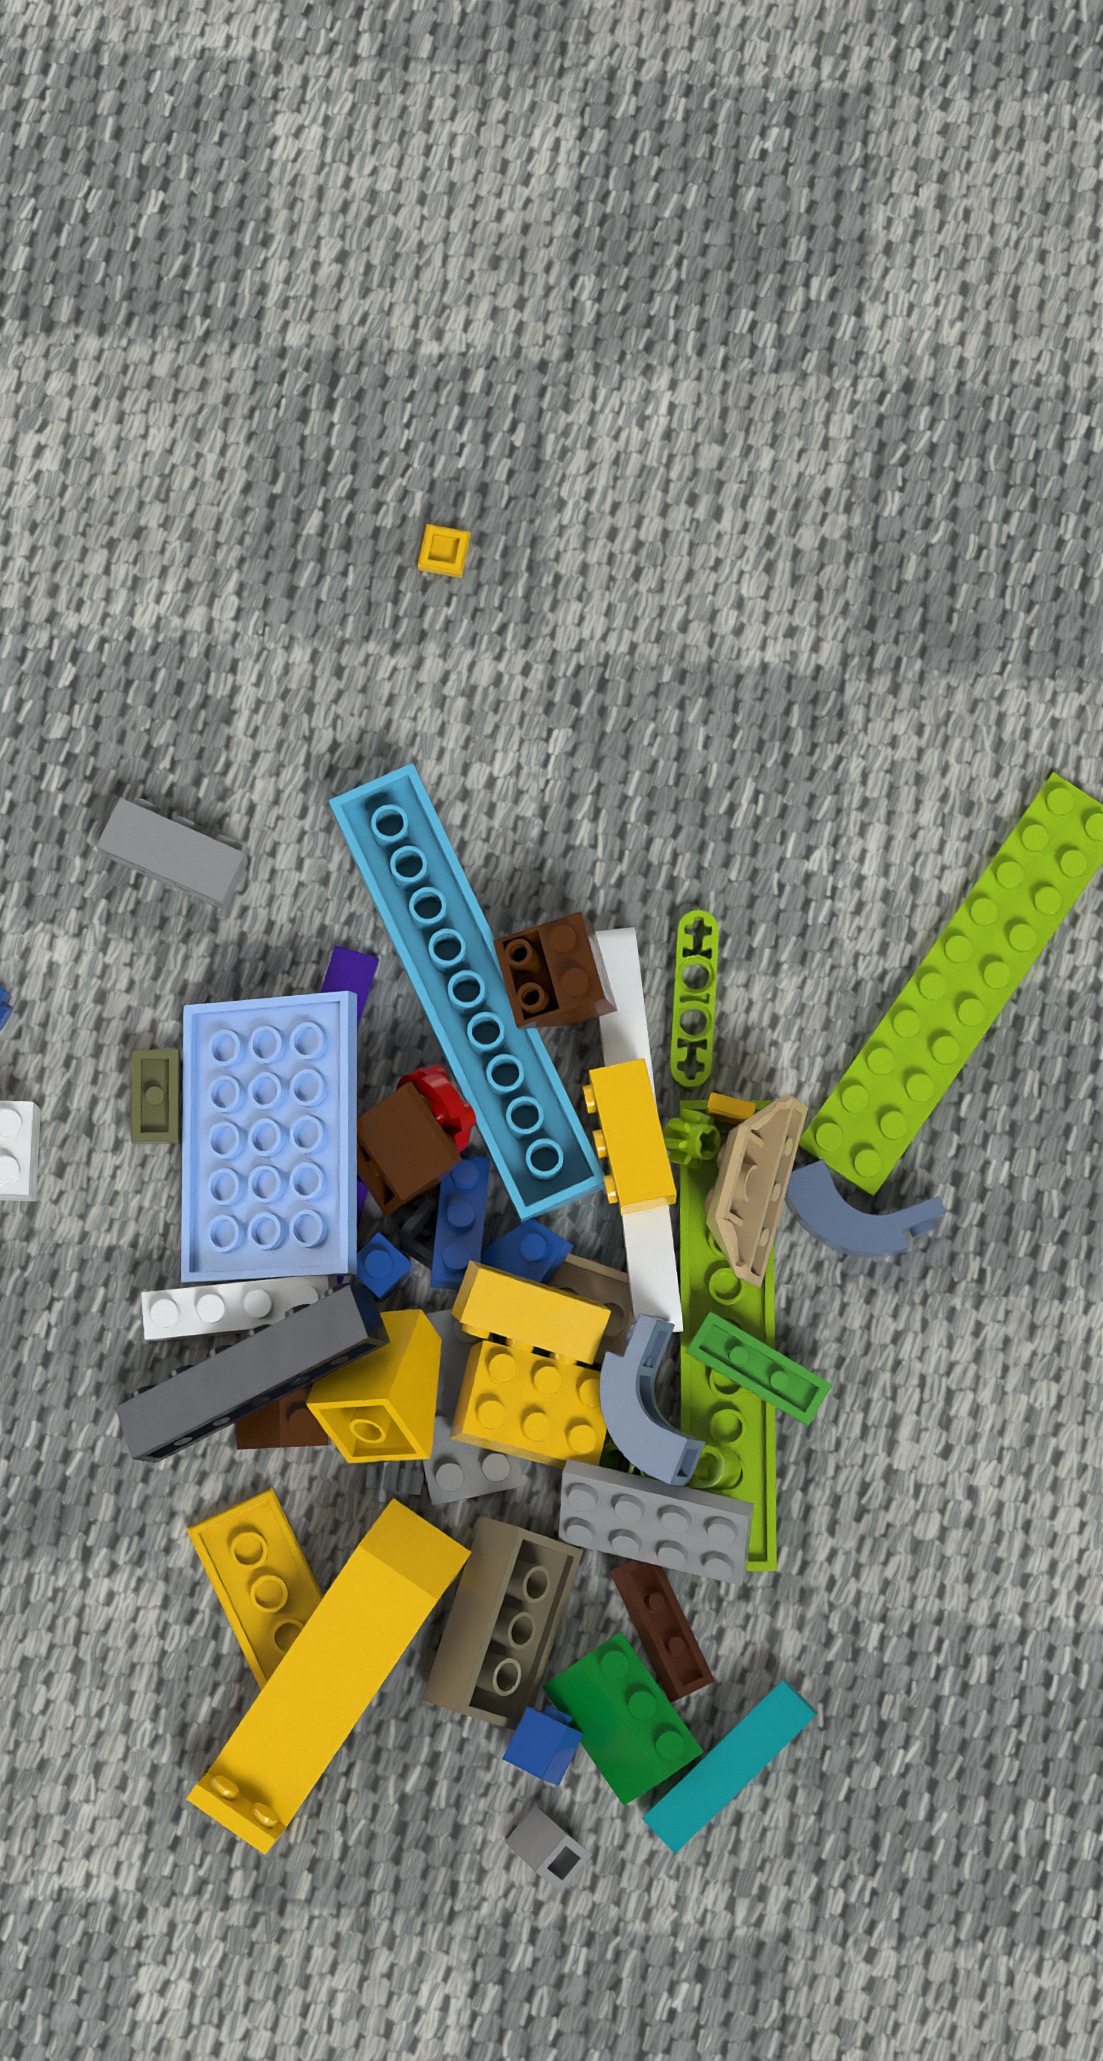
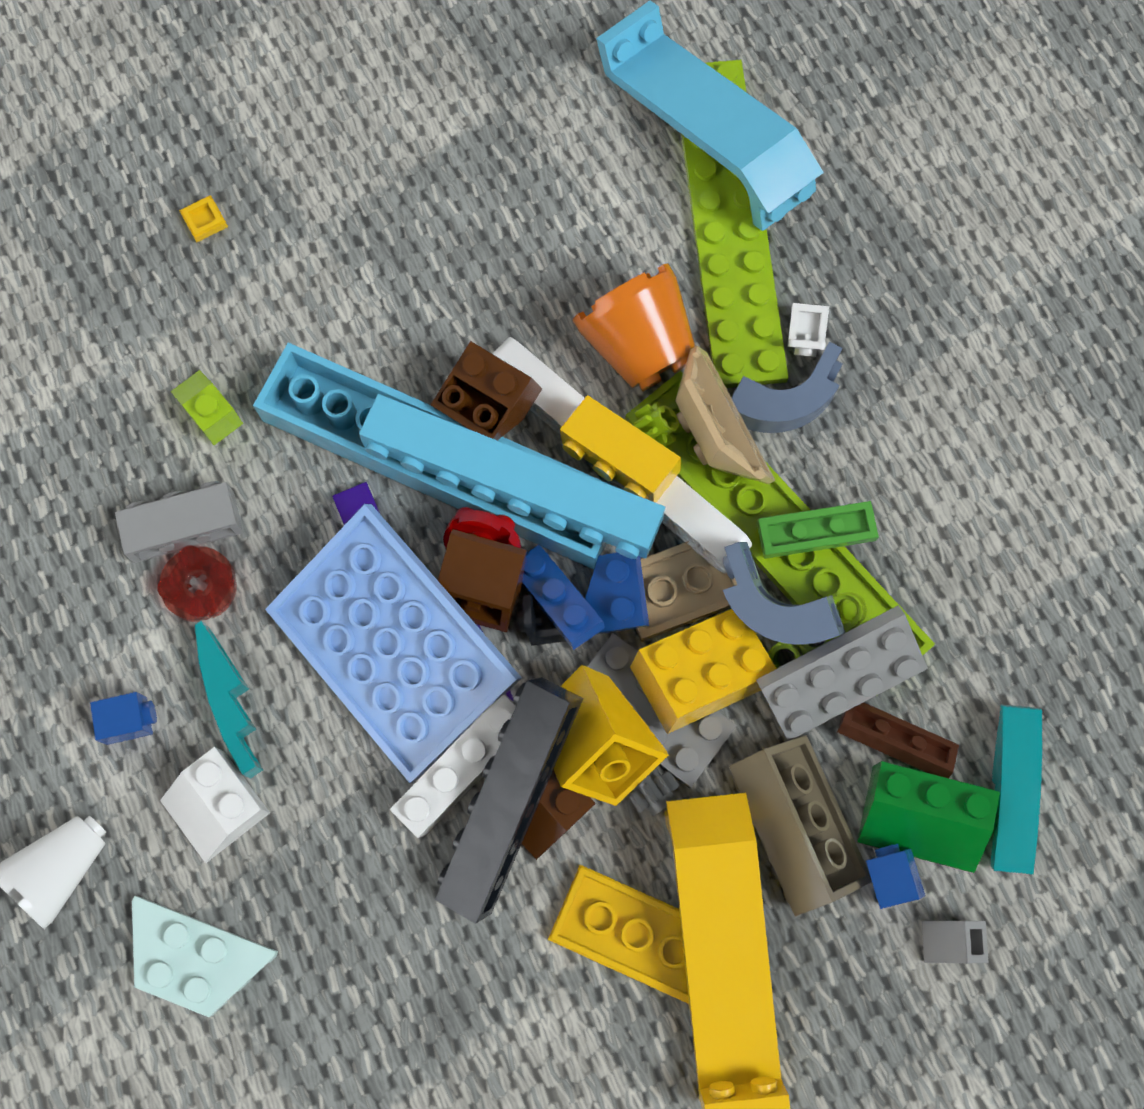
camera: 40 degrees left, 5 degrees down
(86, 1047) = (222, 688): none -> teal slope
(130, 950) = (191, 563): none -> clear red plate
(155, 1097) = (294, 680): olive plate -> none
(289, 754) = (207, 407): none -> lime slope
(382, 1267) = (530, 661): blue brick -> none
(507, 1078) = (512, 477): none -> medium azure brick
(530, 1314) = (652, 611): yellow brick -> none
(689, 999) = (579, 354): lime beam -> none
(729, 1109) = (663, 390): yellow tile -> none
(763, 1031) = (640, 328): none -> orange cone
(935, 1164) = (808, 329): none -> white bracket
(1030, 859) = (711, 113): none -> medium azure panel

